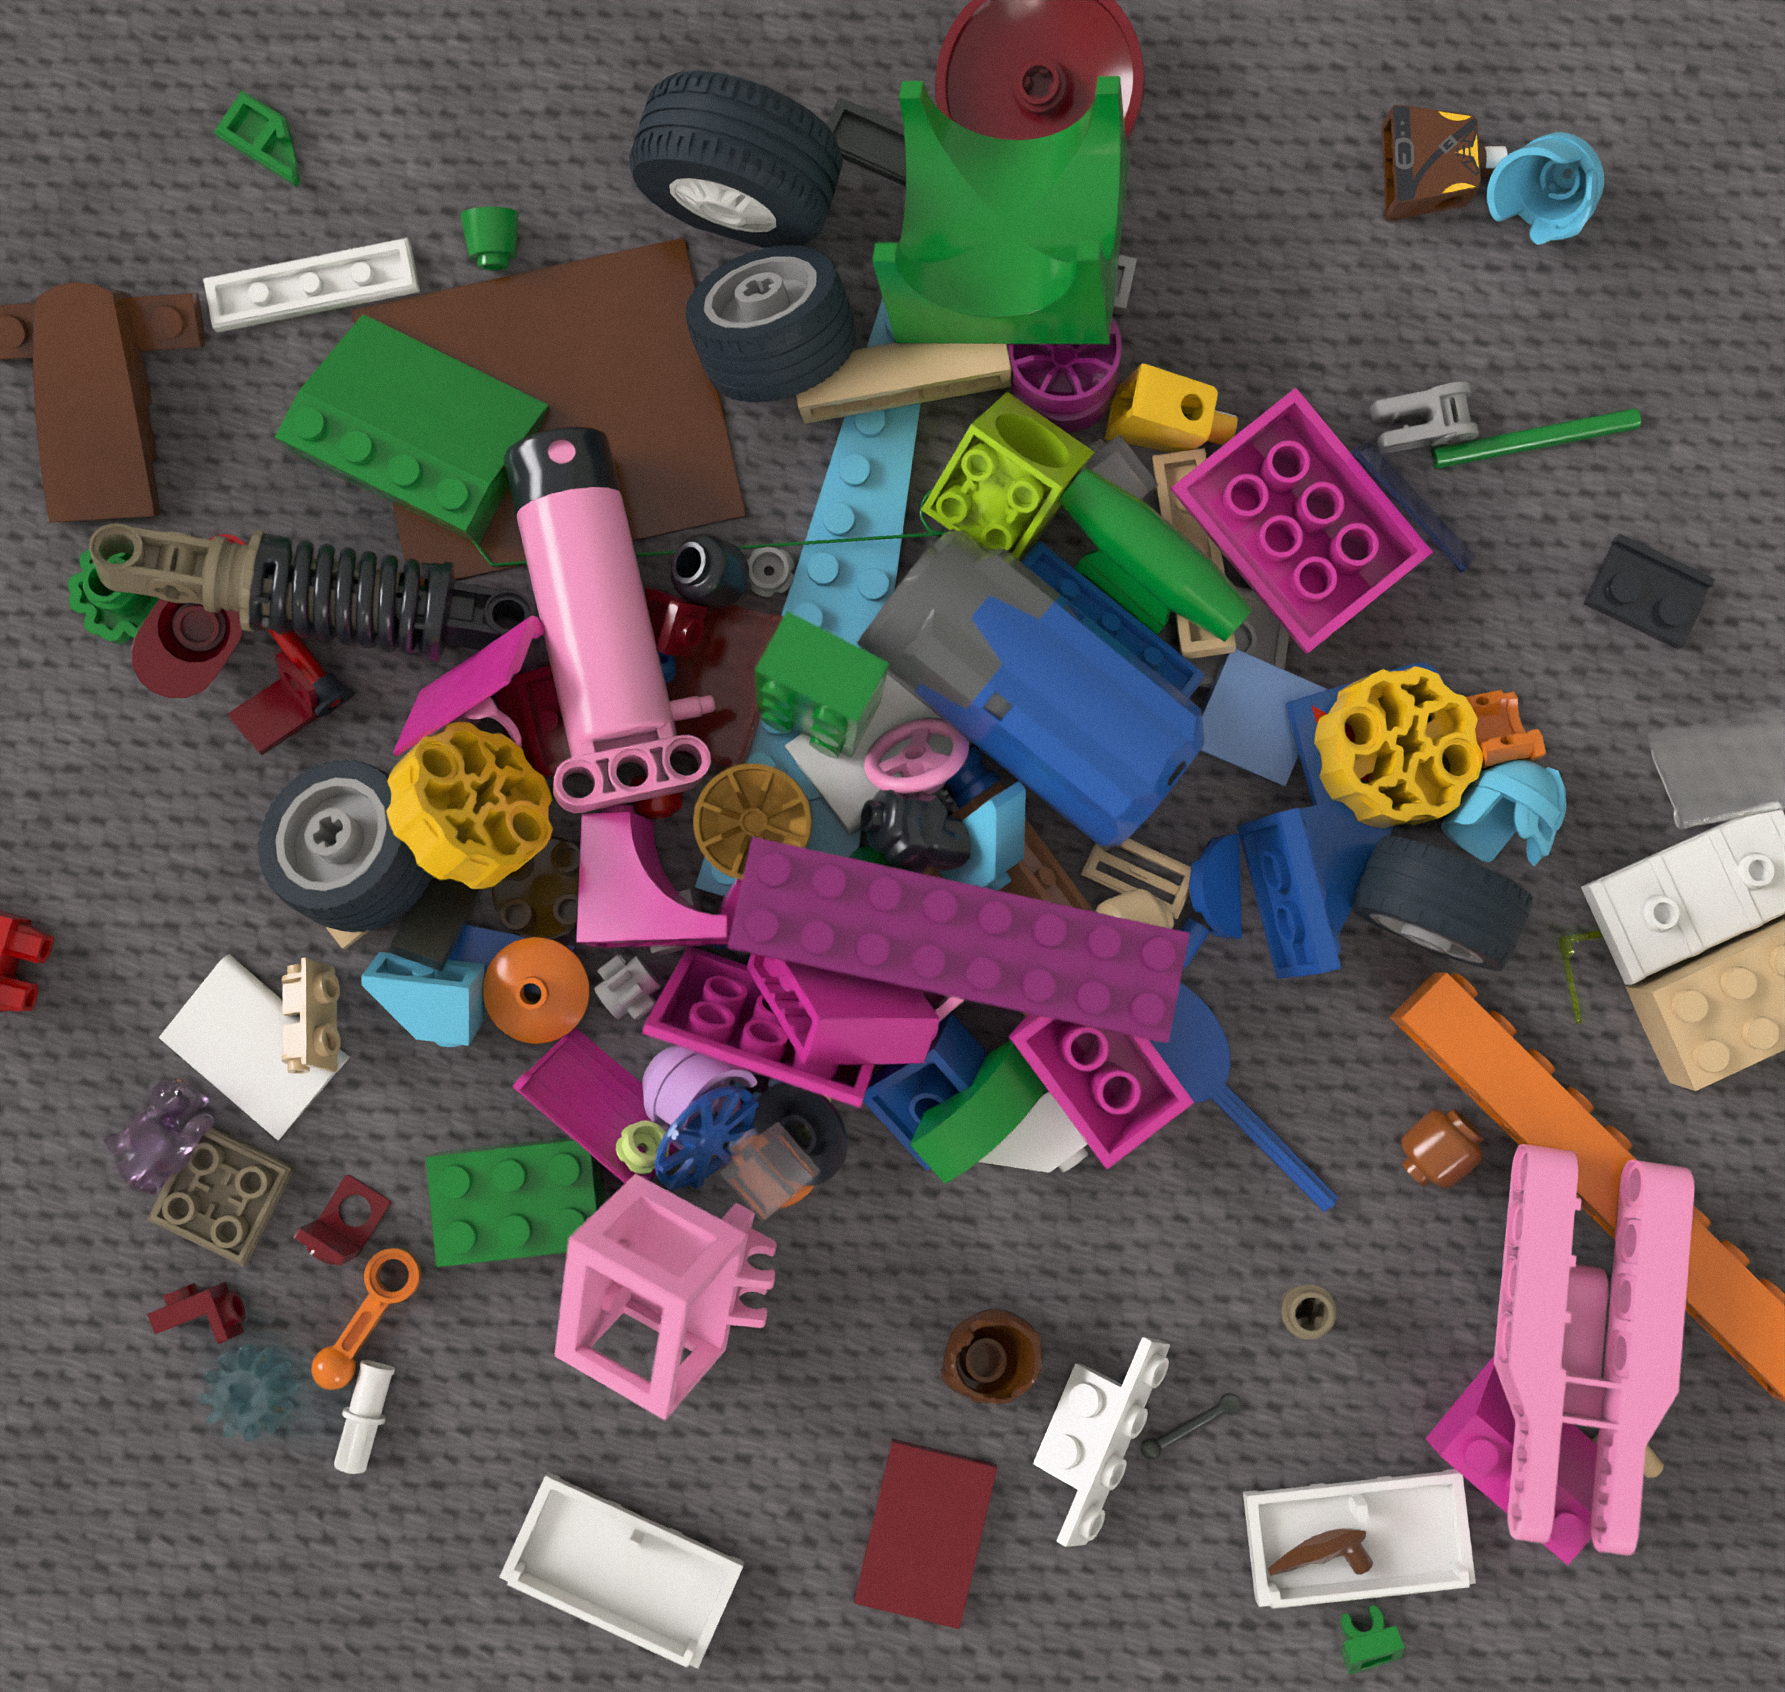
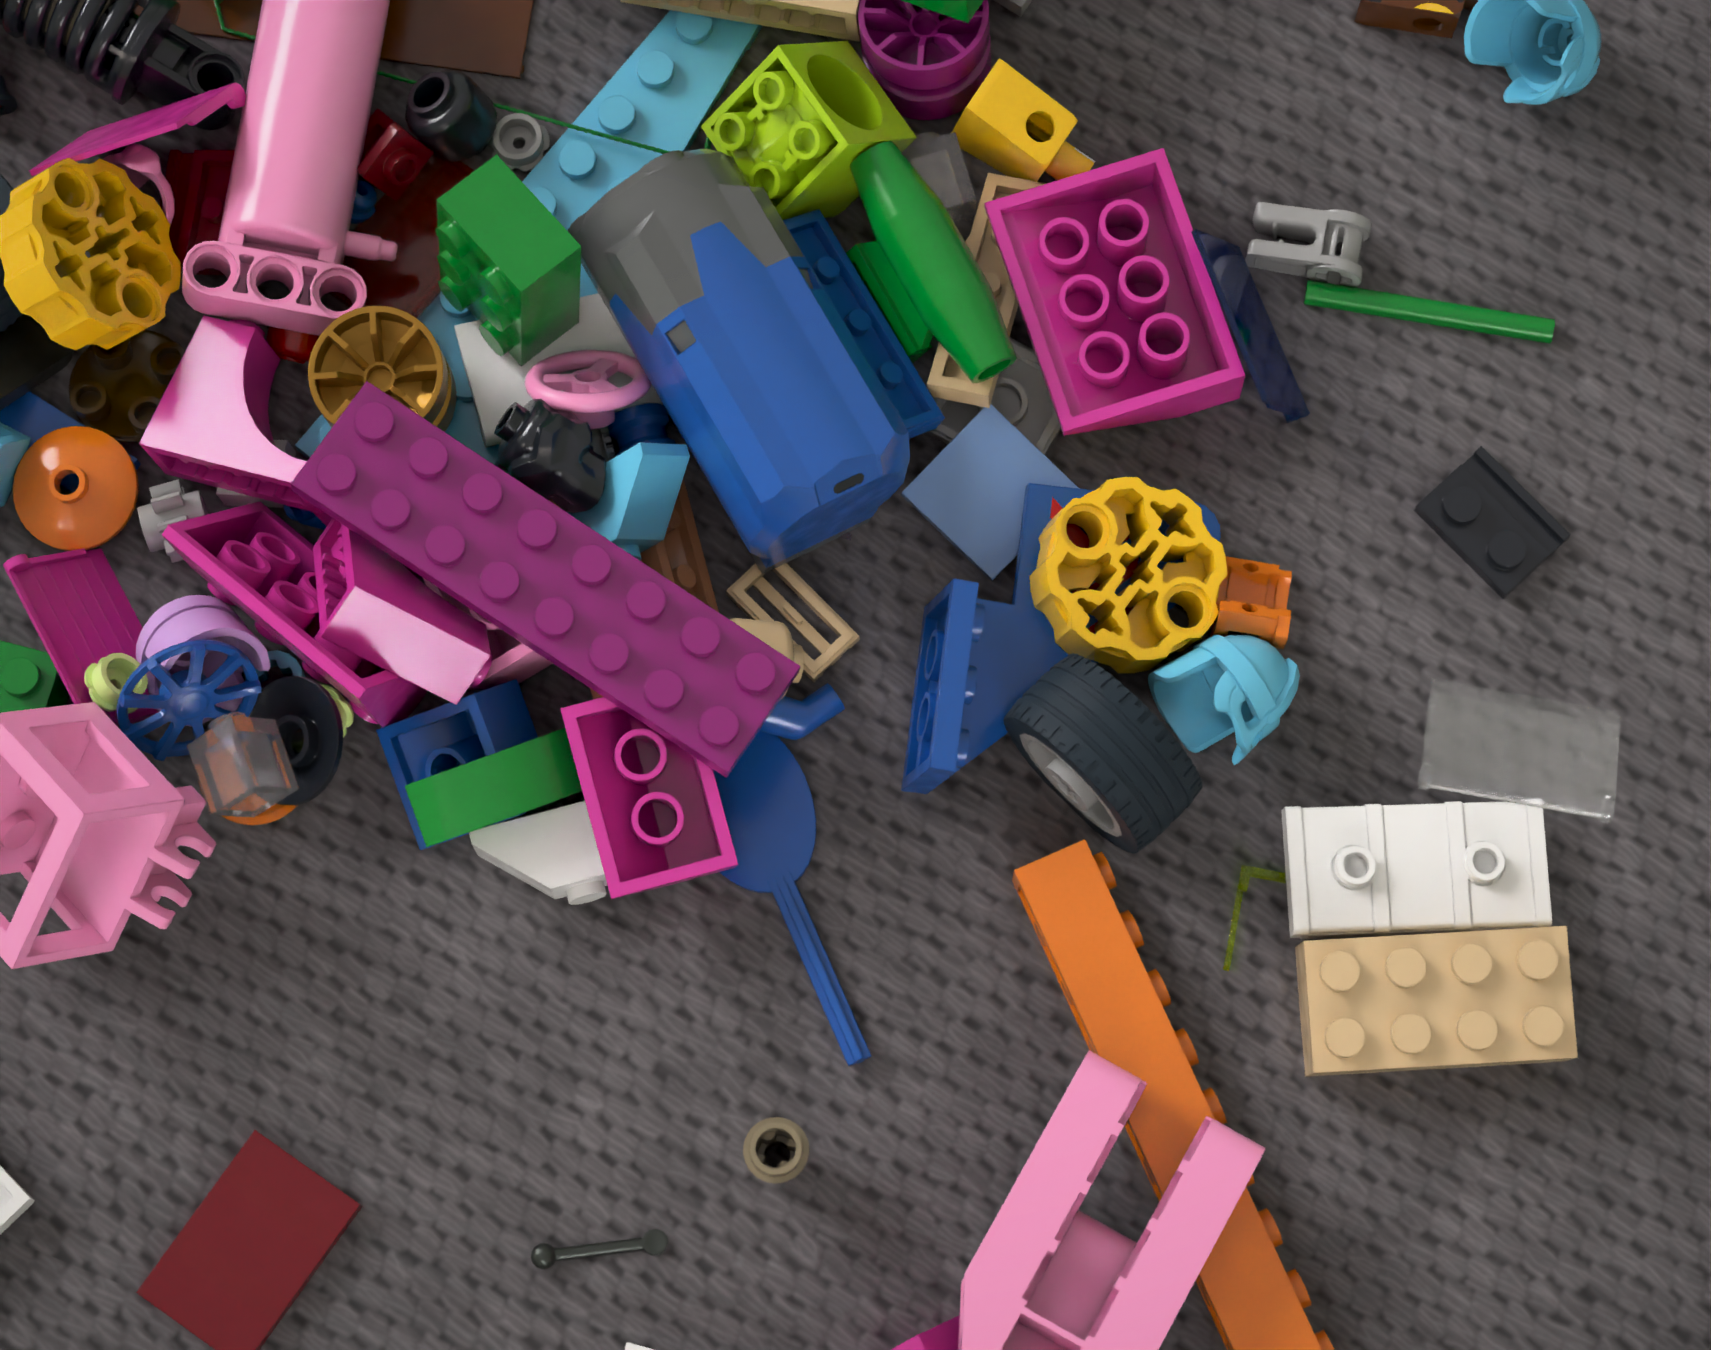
camera: 25 degrees right, 10 degrees down
(990, 1370) = (389, 1072): reddish brown hair -> none
(1093, 1433) = (488, 1211): white bracket -> none
(1217, 886) = (871, 660): blue tile -> none
(1441, 1148) = (1007, 1040): dark orange head -> none

